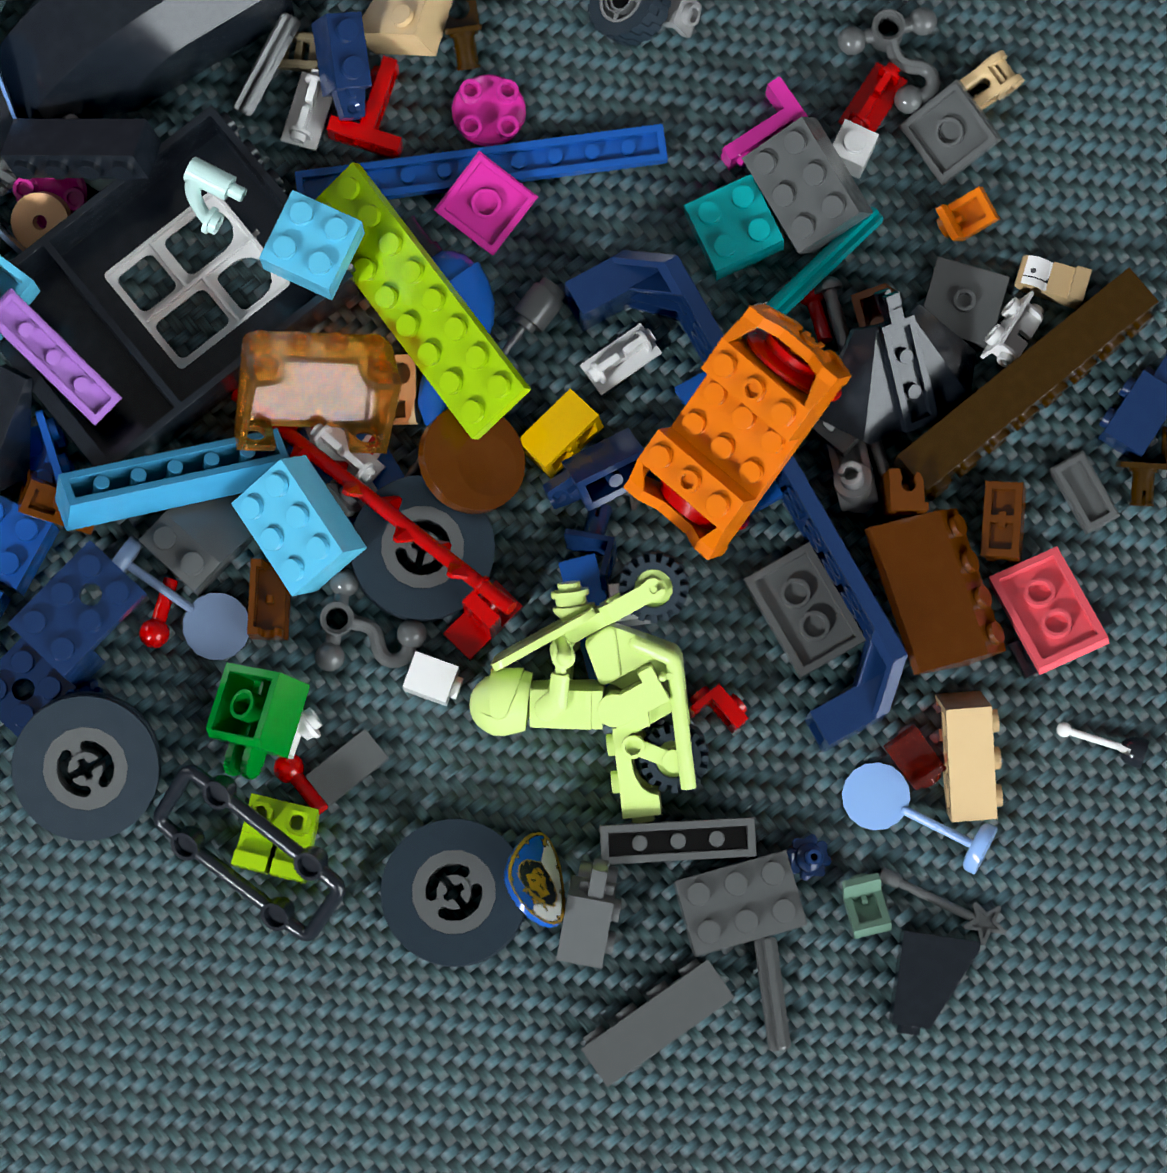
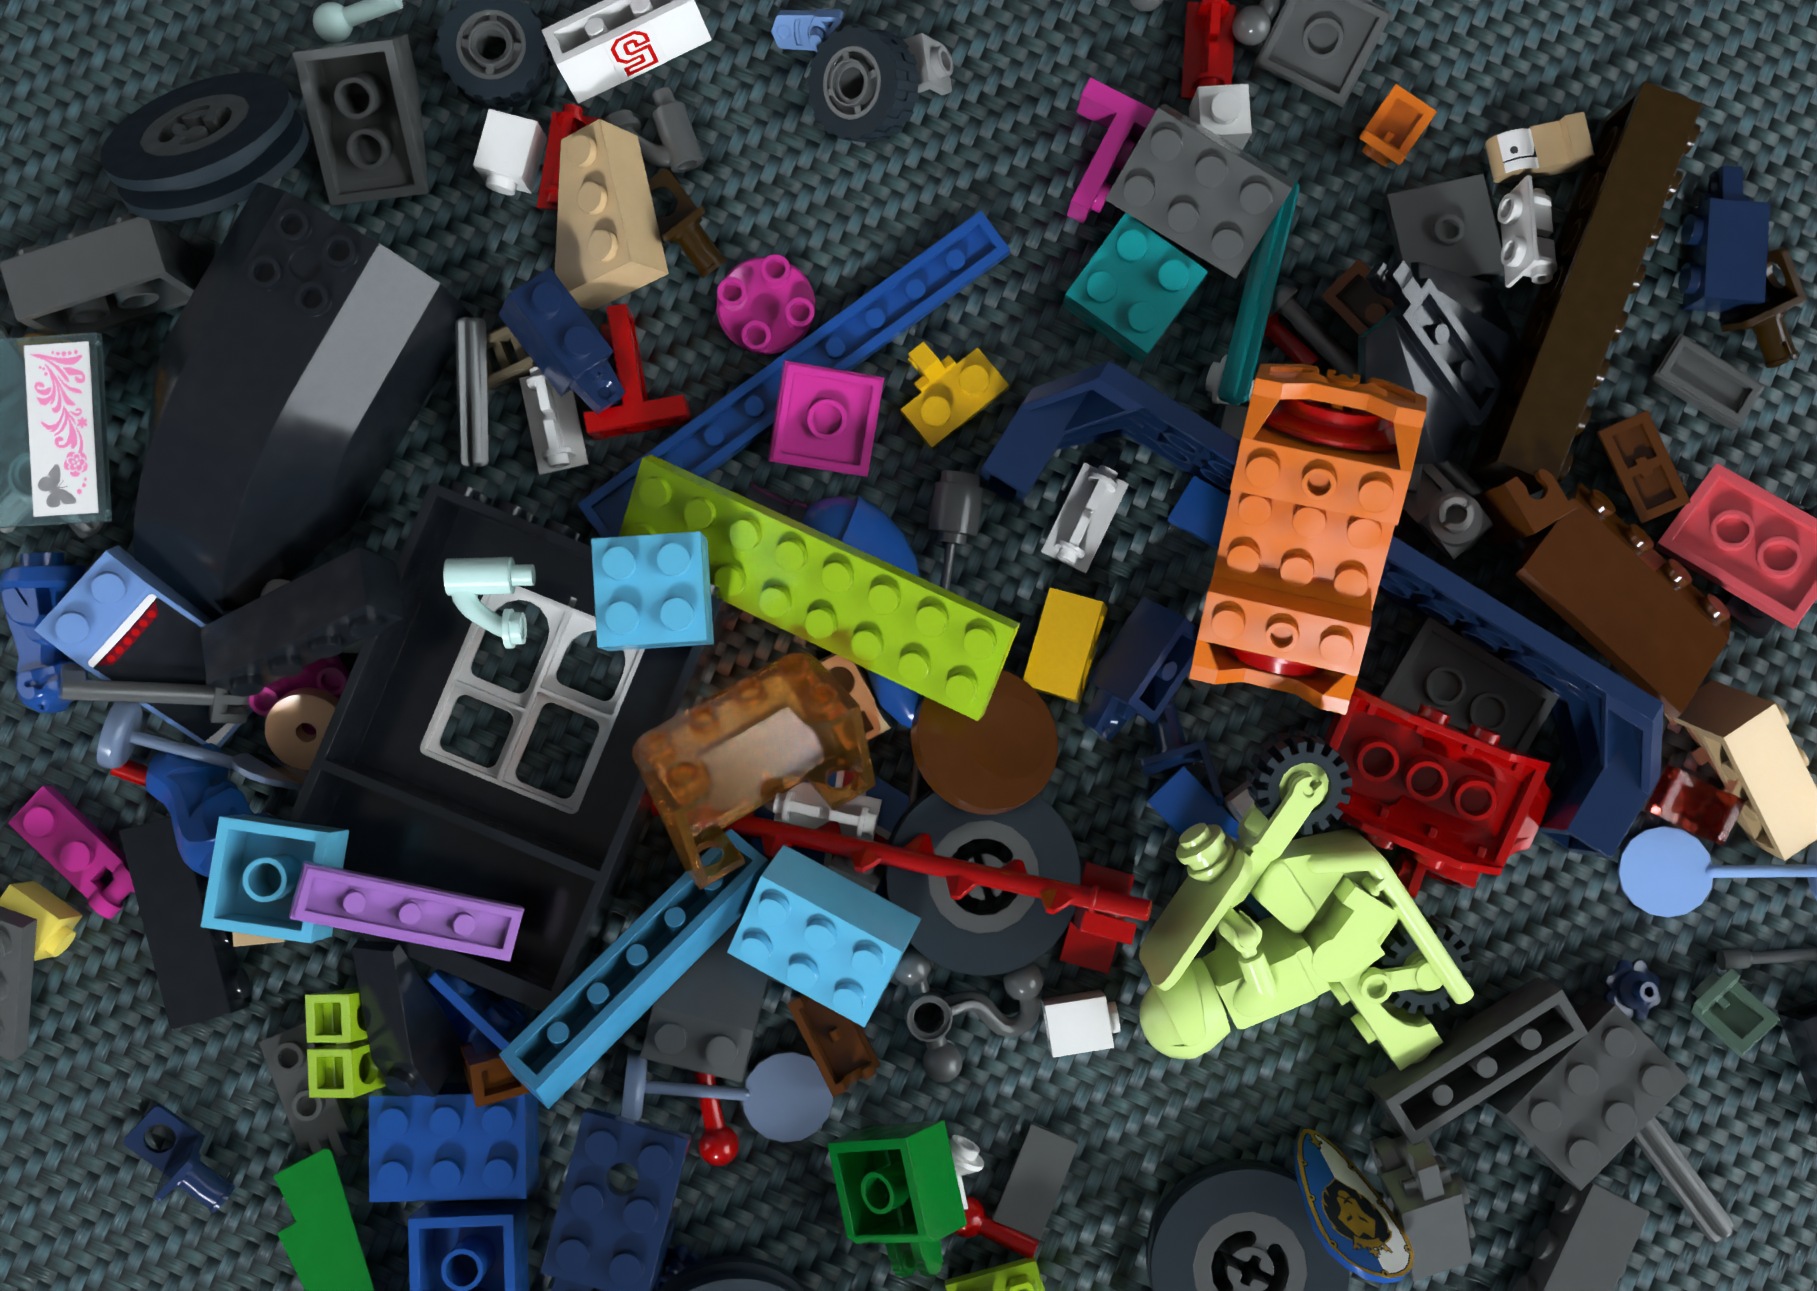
camera: 25 degrees left, 5 degrees up
(577, 231) = (949, 392): none -> yellow hinge
(748, 647) = (1437, 786): none -> red slope

